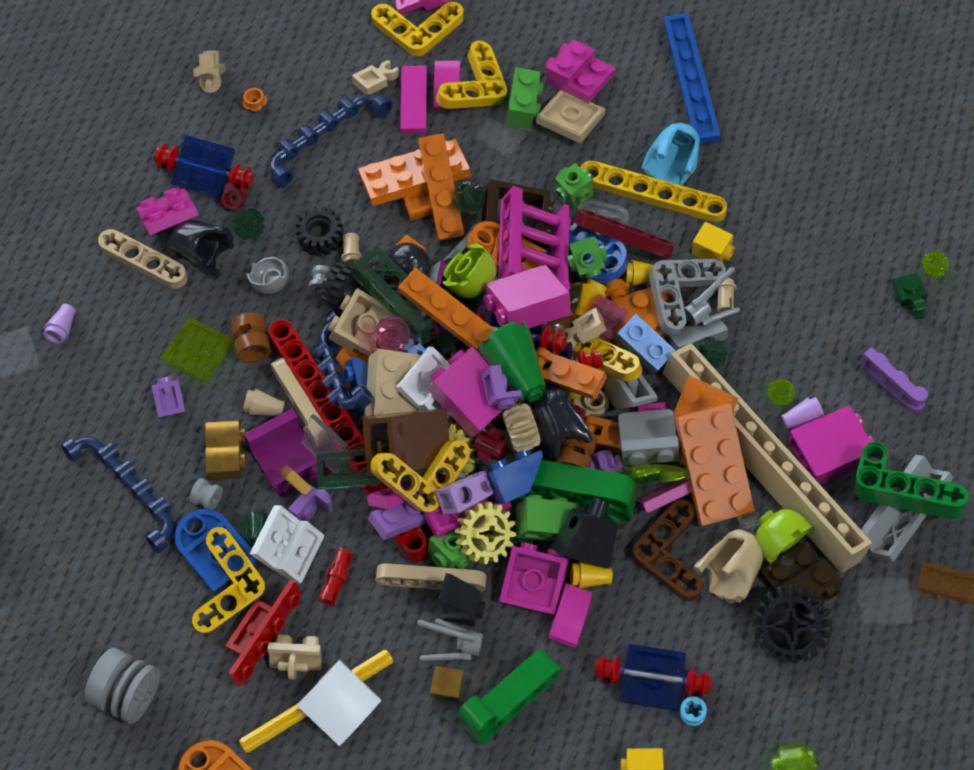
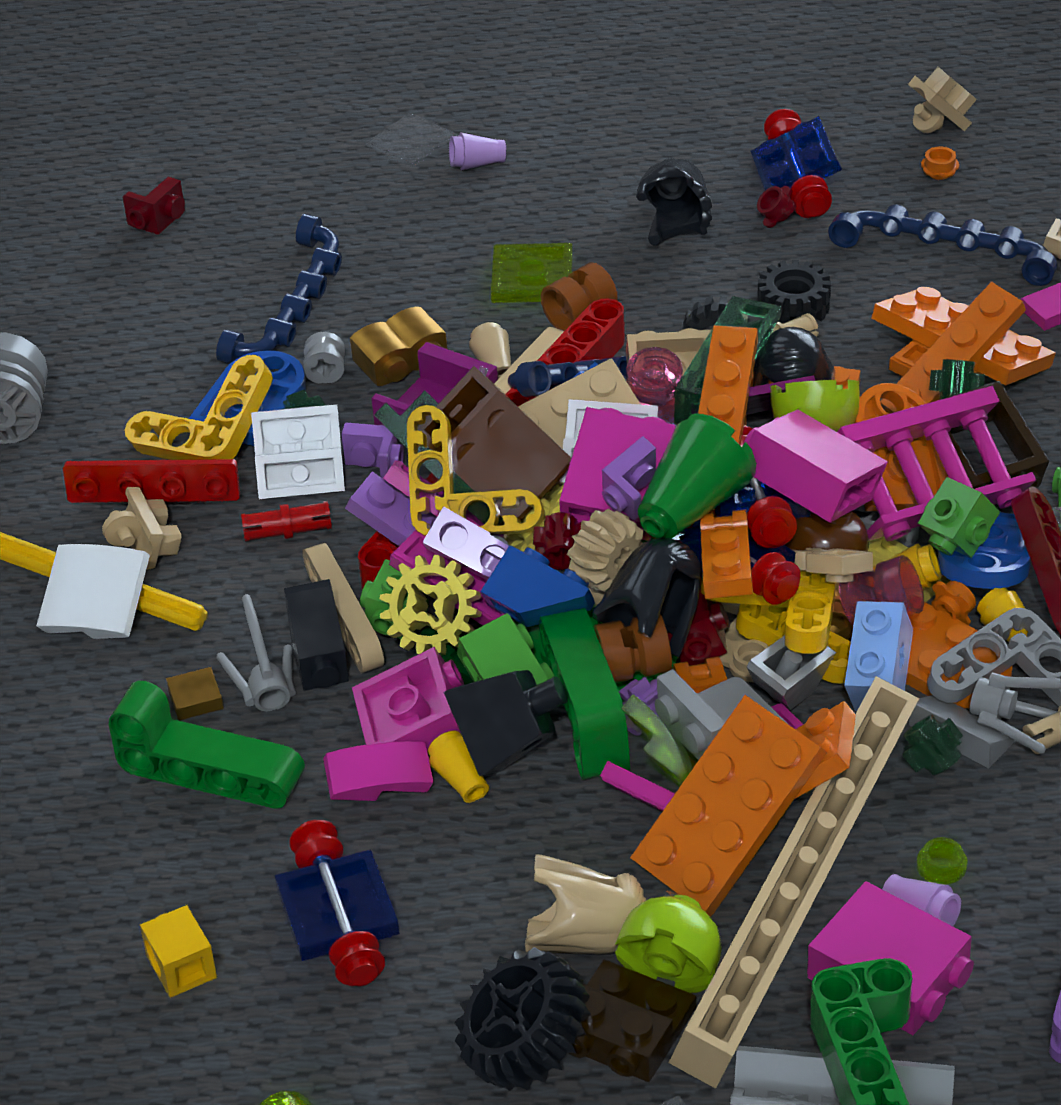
camera: 60 degrees right, 20 degrees down
(144, 256) = (623, 176): tan beam -> none
(166, 211) = (712, 158): dark pink plate -> none
(168, 397) = (440, 270): medium lavender bracket -> none
(248, 223) = (746, 228): clear green gear -> none
(268, 275) = (684, 279): light grey hair -> none
(292, 477) = (383, 392): pearl gold tile -> none
(660, 556) = (552, 831): reddish brown beam -> none
(696, 703) = (310, 964): medium azure bush -> none

